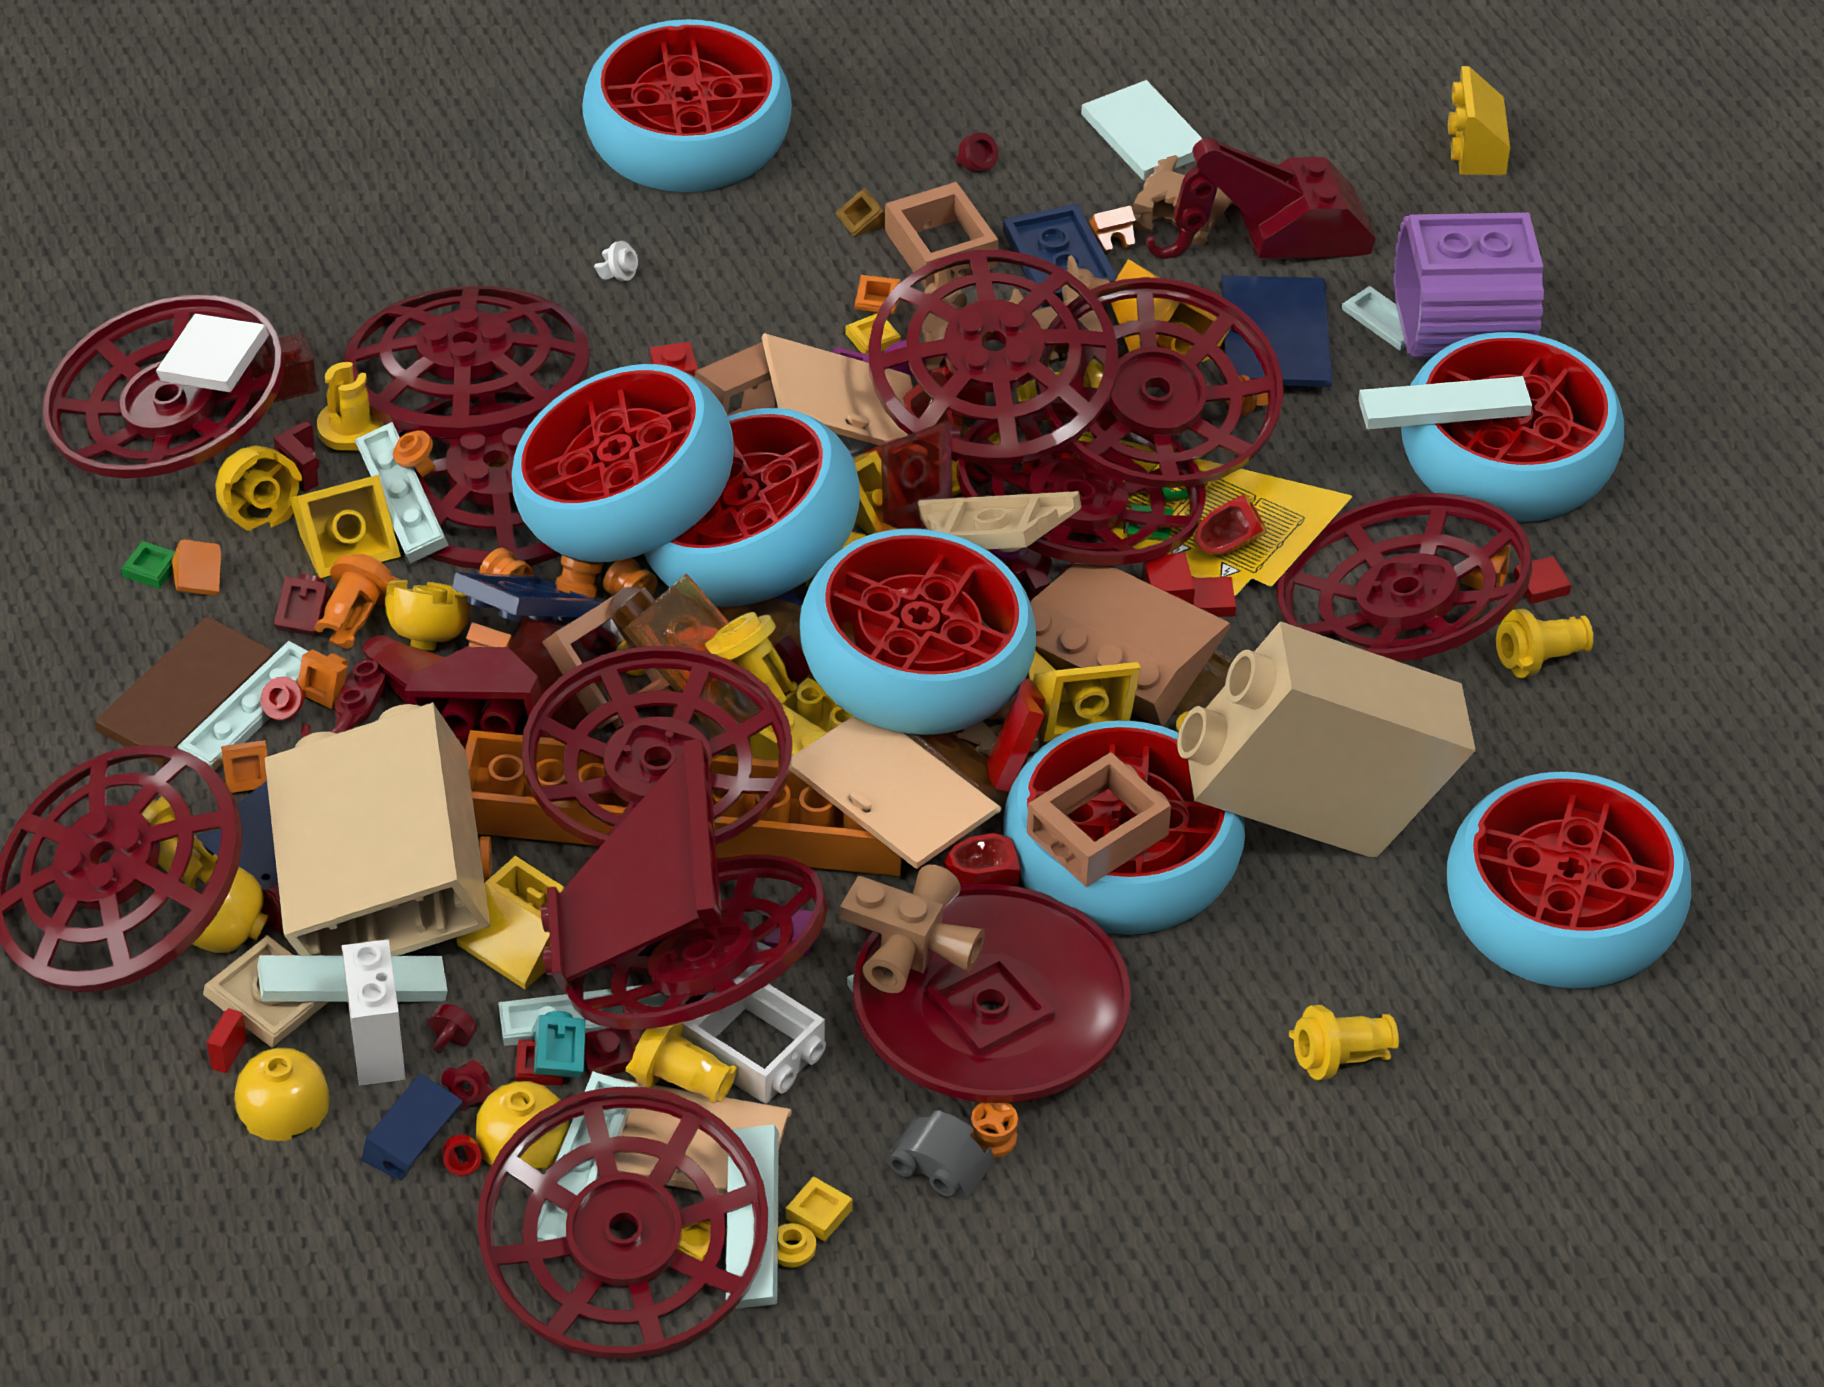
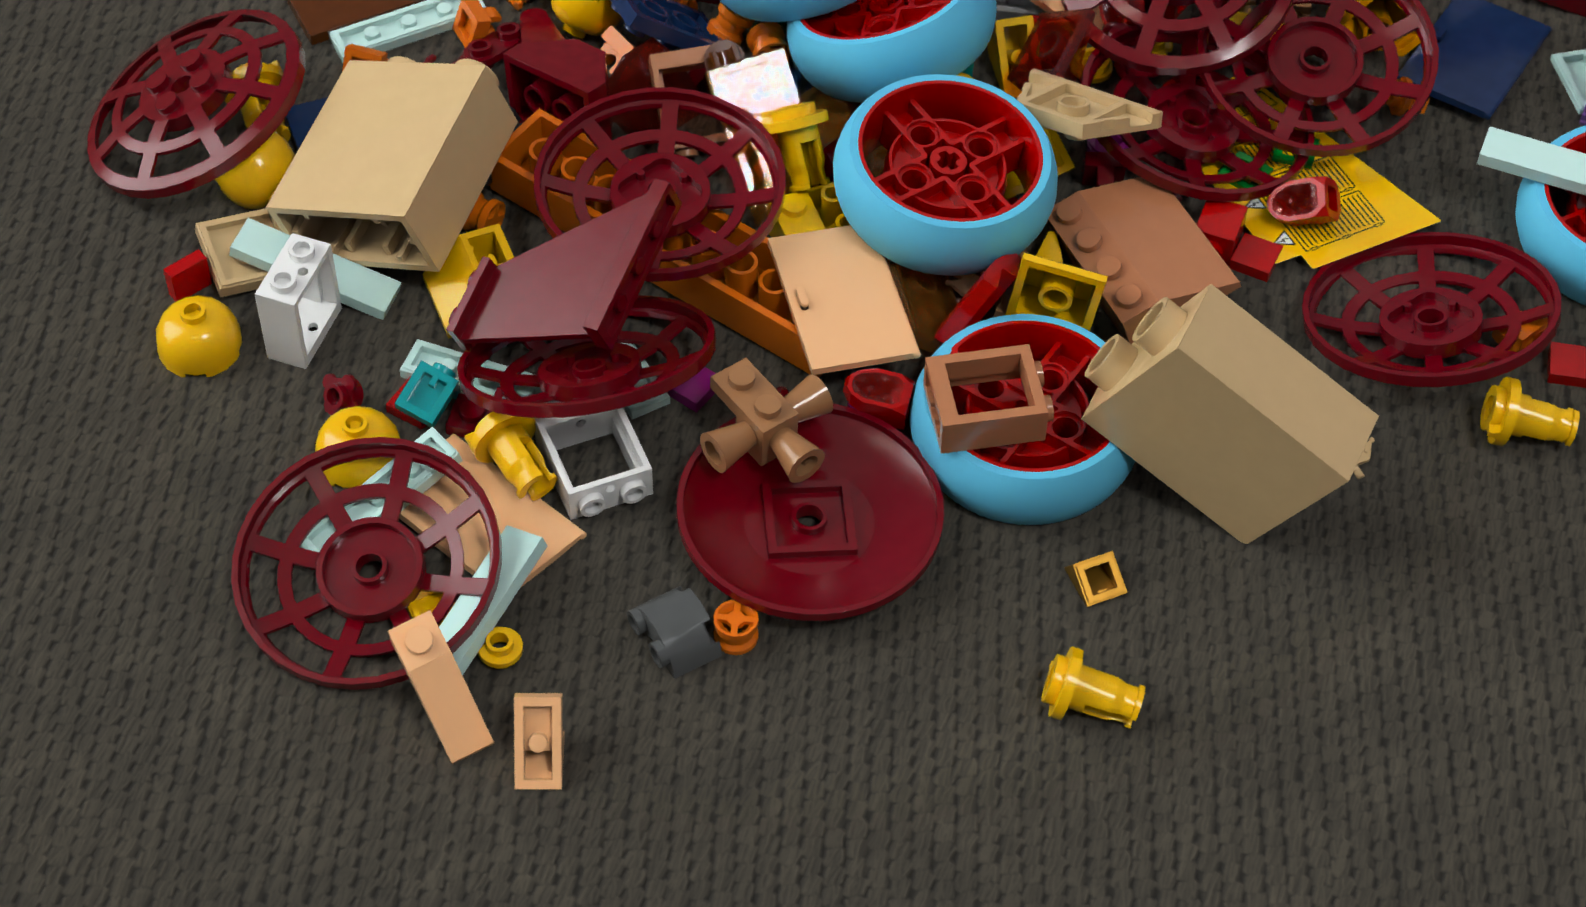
camera: 30 degrees right, 5 degrees up
(282, 698) = (429, 27): plate -> none
(409, 1127) = (270, 405): dark blue hinge -> none
(450, 1156) = (290, 444): red hinge -> none
(452, 1025) = (364, 342): dark red tile -> none
(777, 1297) = (440, 686): none -> light nougat slope
(819, 1208) = (542, 627): yellow plate -> none
(896, 1307) = (538, 741): none -> light nougat slope
(1273, 942) = (1097, 578): none -> pearl gold slope
(1569, 880) = (1413, 610): wheel -> none

